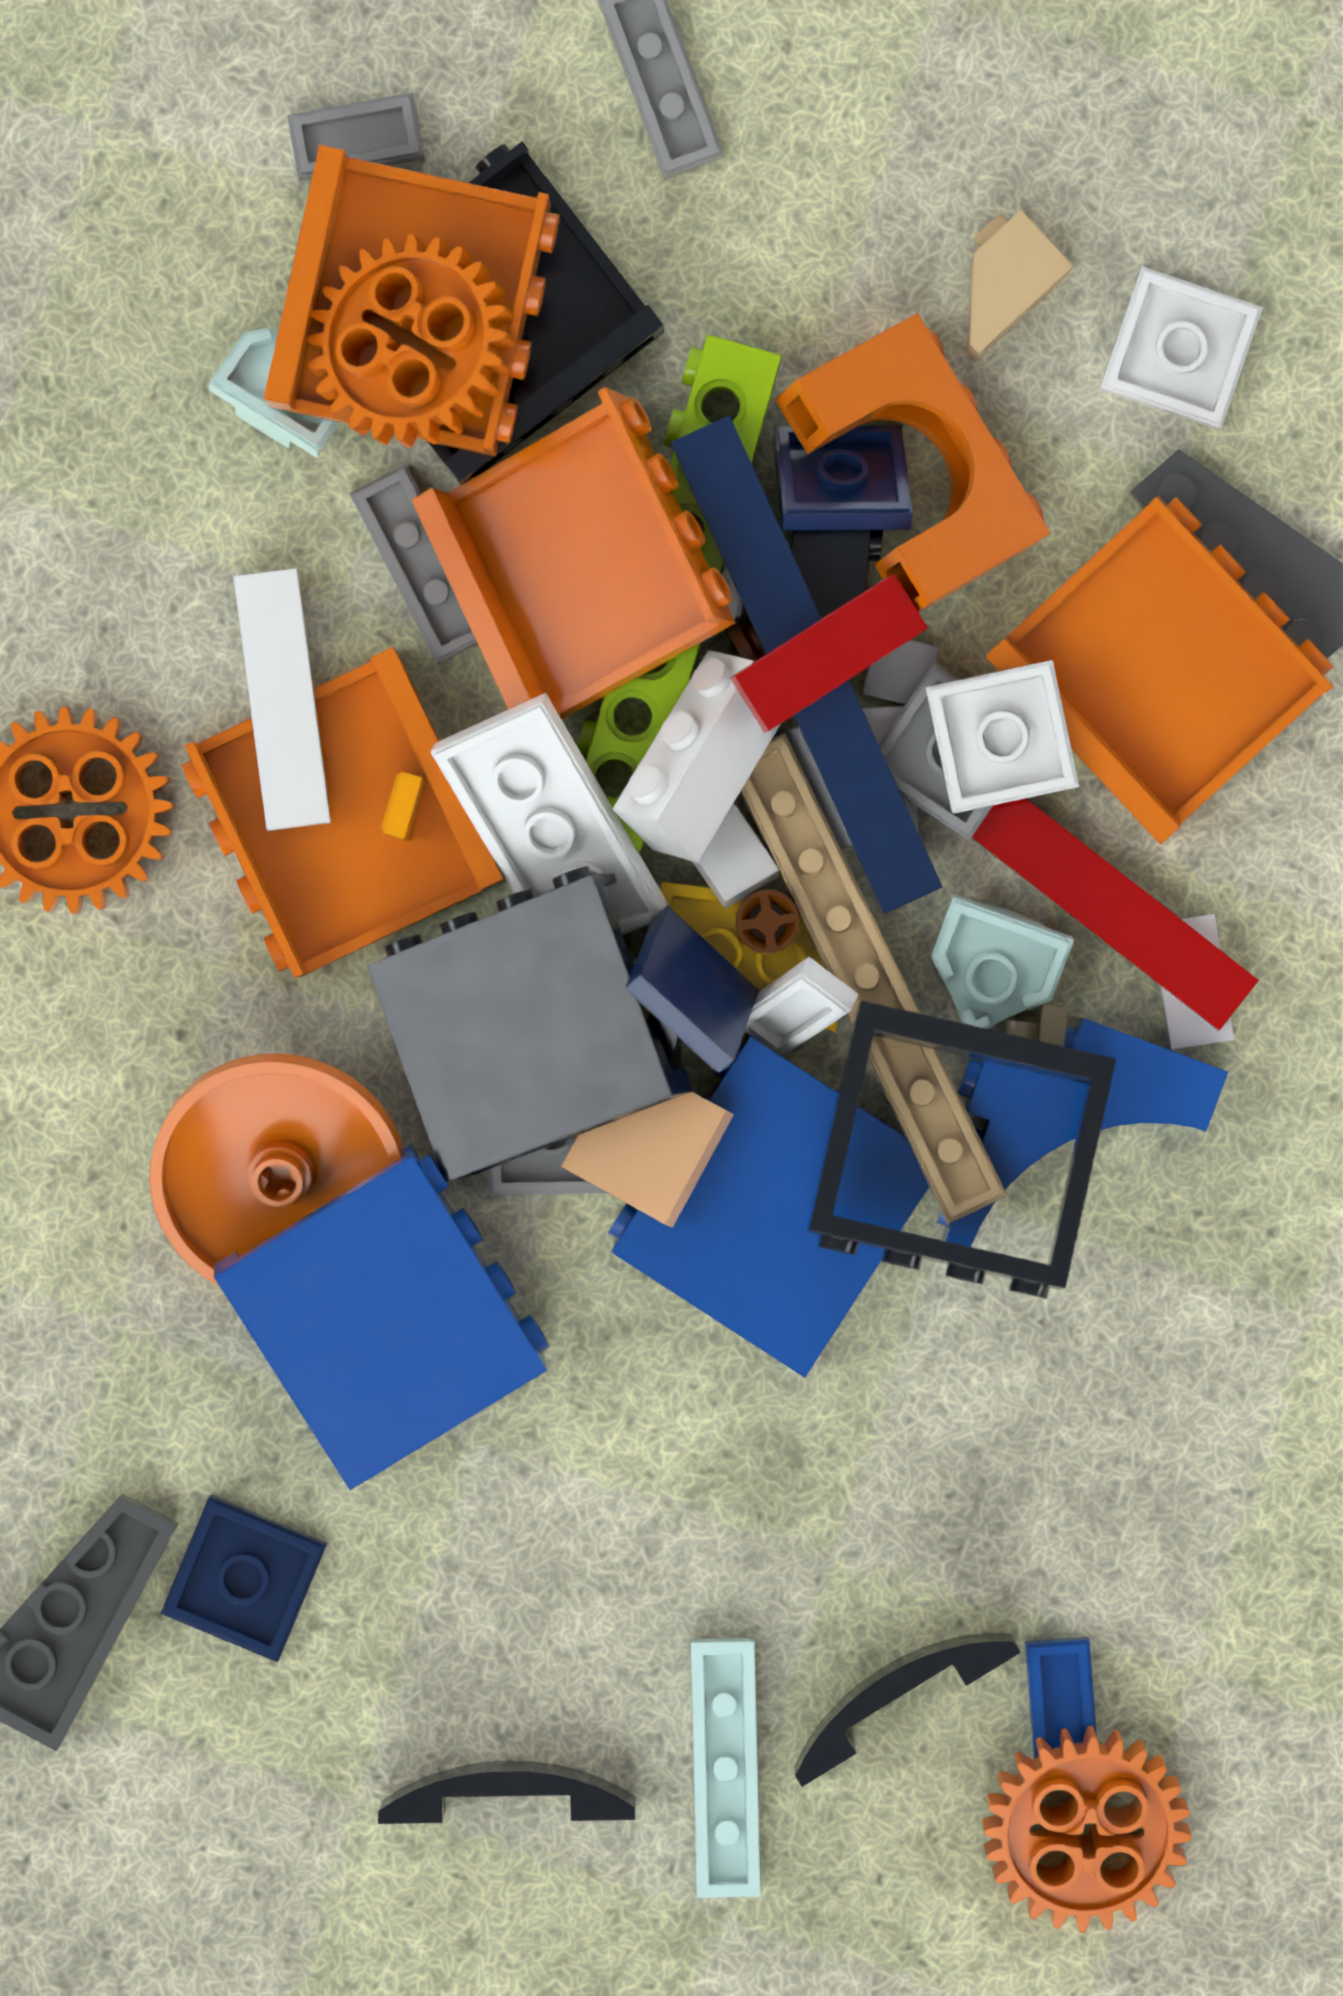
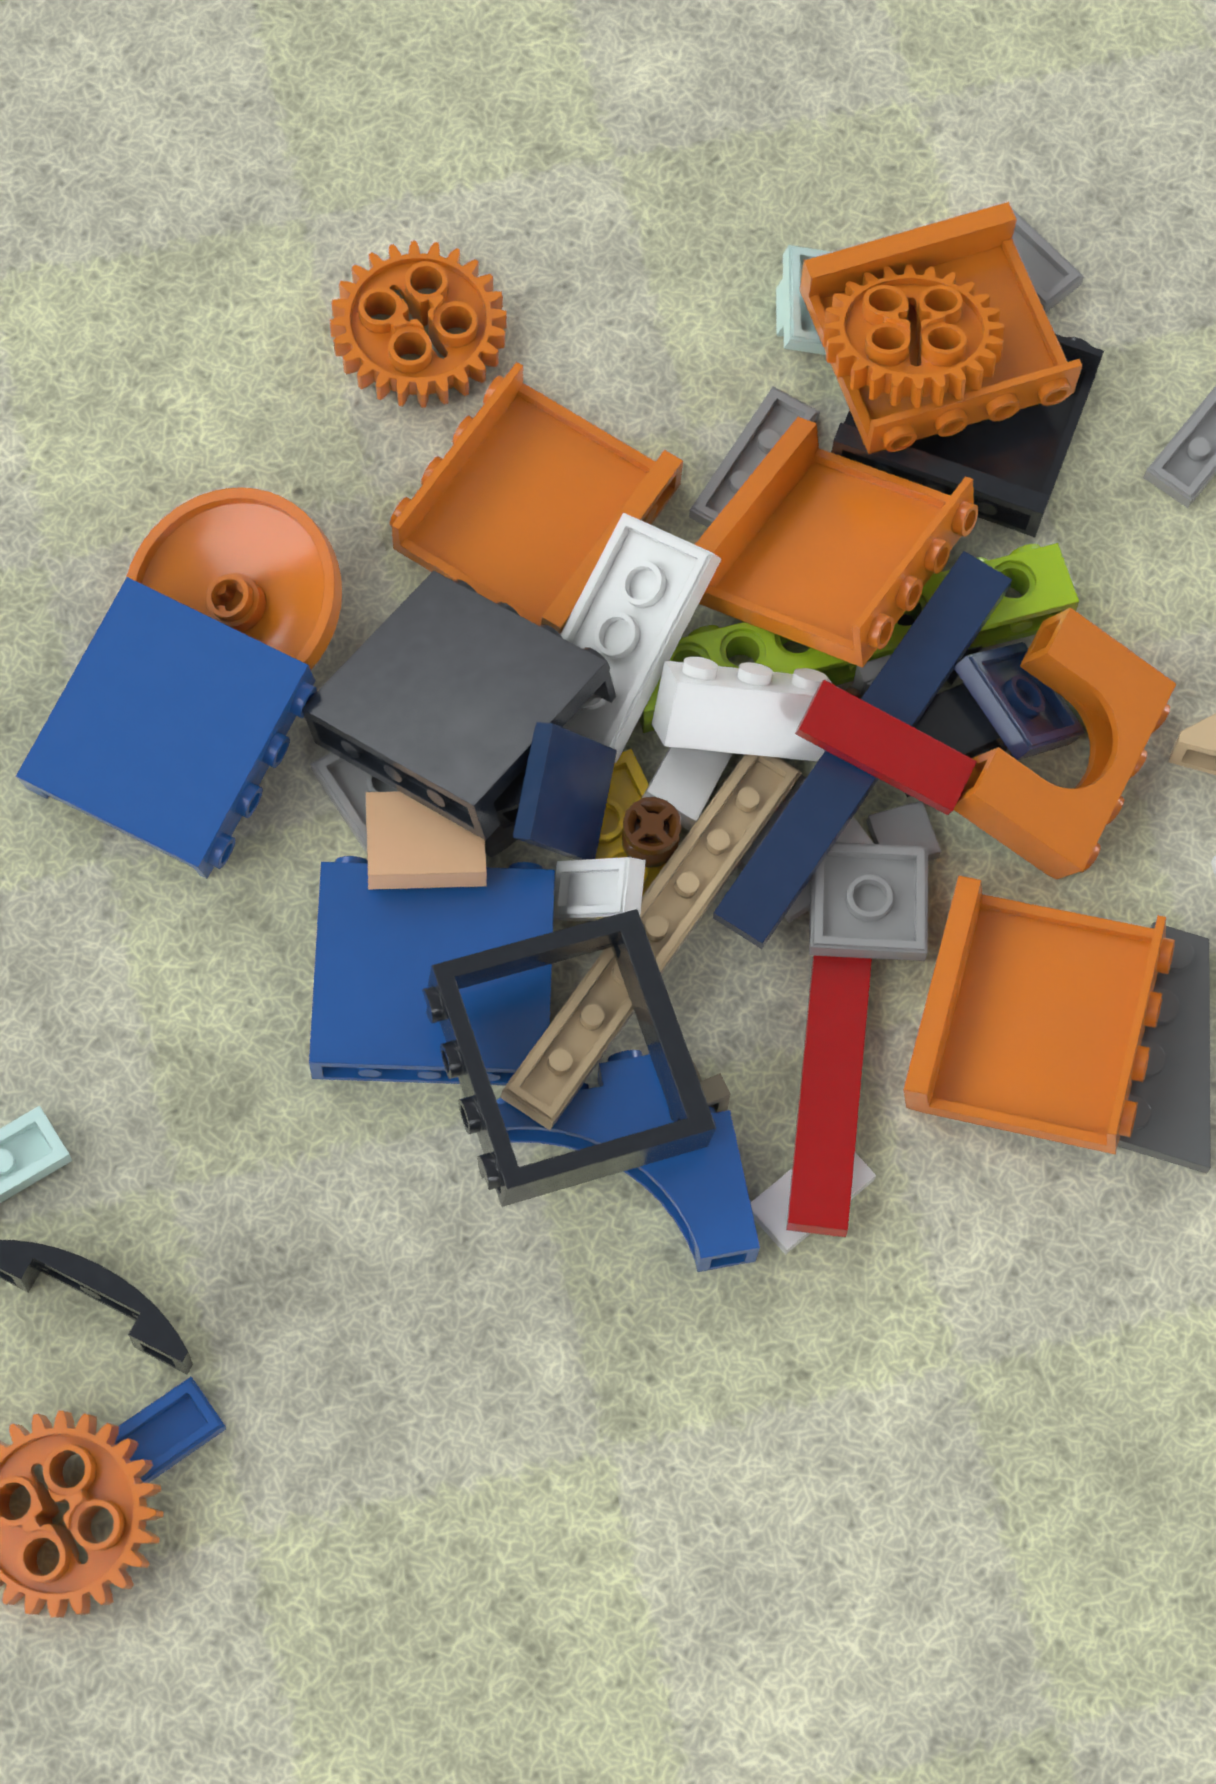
camera: 55 degrees right, 20 degrees down
(282, 699) = (592, 417): white tile -> none
(403, 805) = (568, 536): light orange tile -> none
(997, 960) = (733, 1027): light aqua plate -> none
(1002, 736) = (906, 919): white tile -> none

